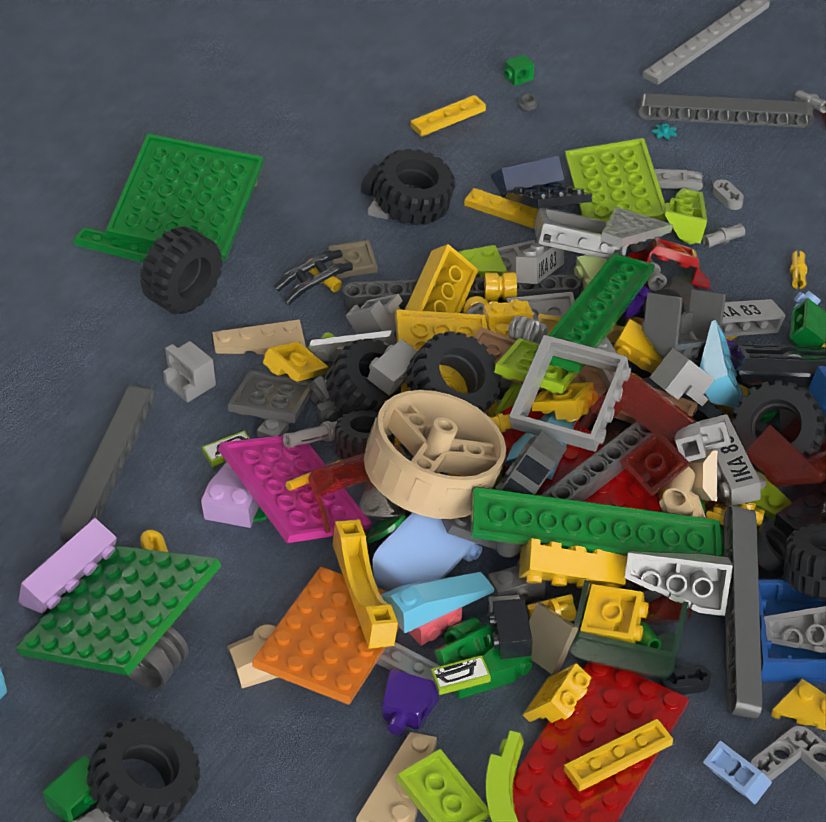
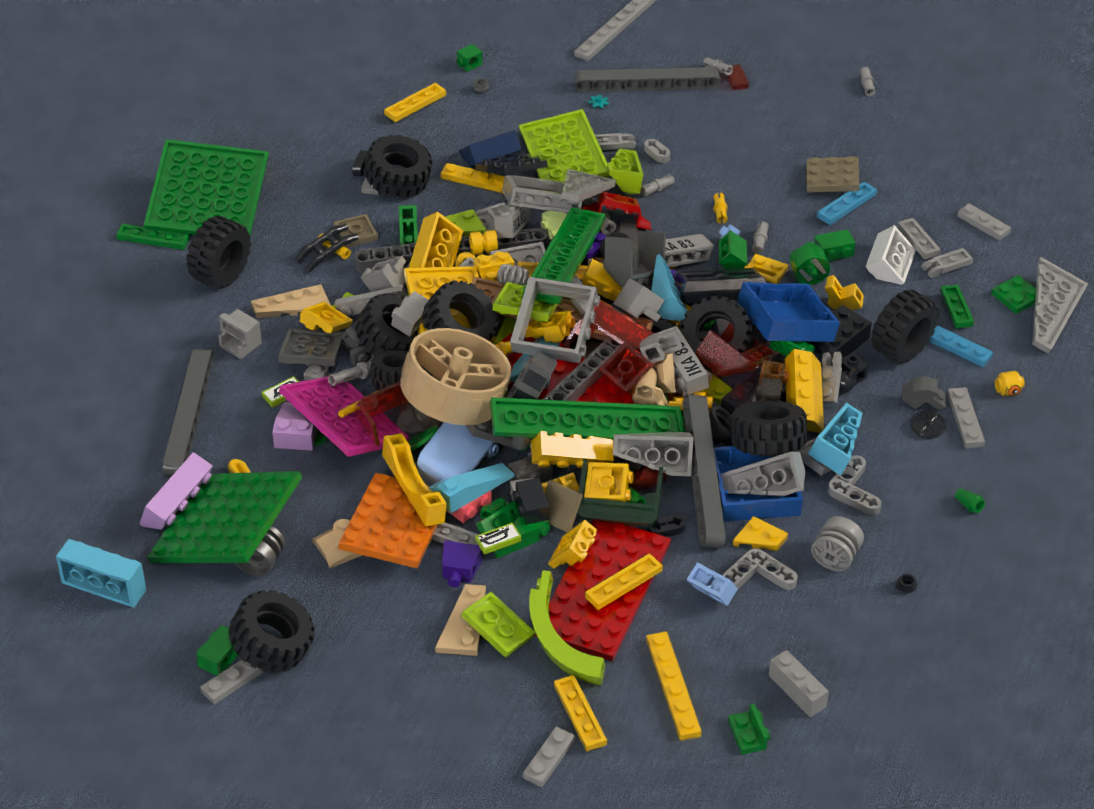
camera: 10 degrees left, 0 degrees up
(414, 255) = (408, 224): none -> green slope

